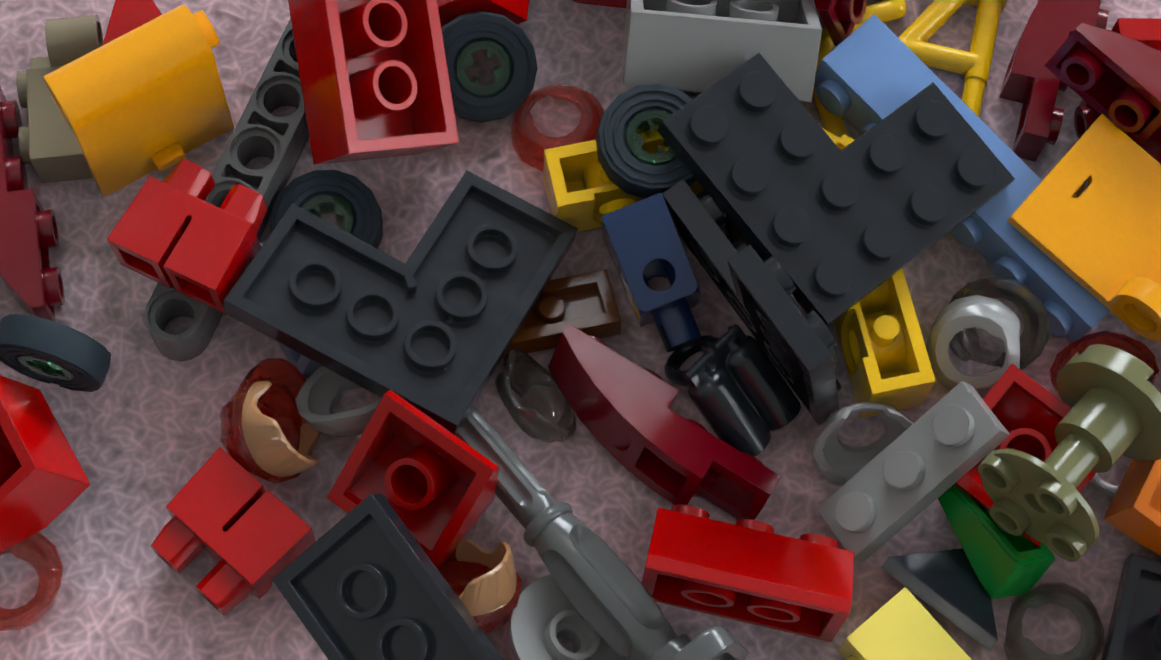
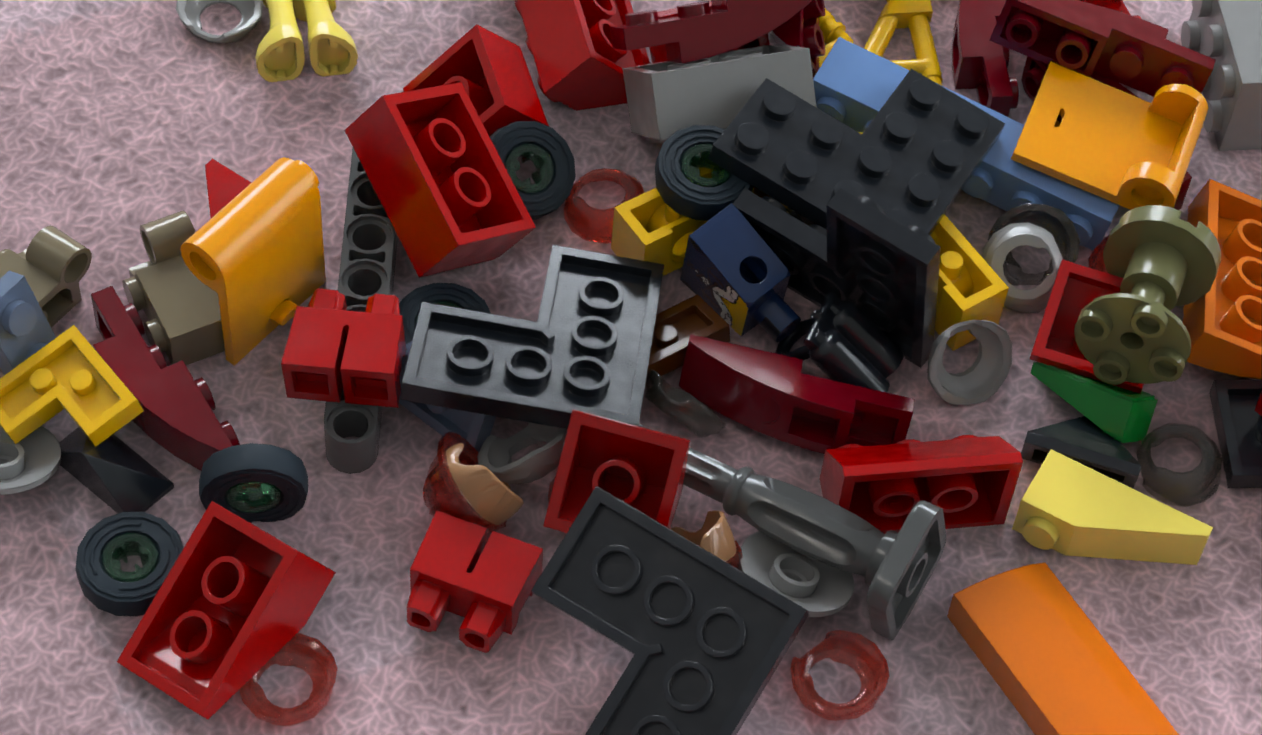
camera: 20 degrees left, 15 degrees down
(913, 471) = (1019, 361): light grey plate -> none

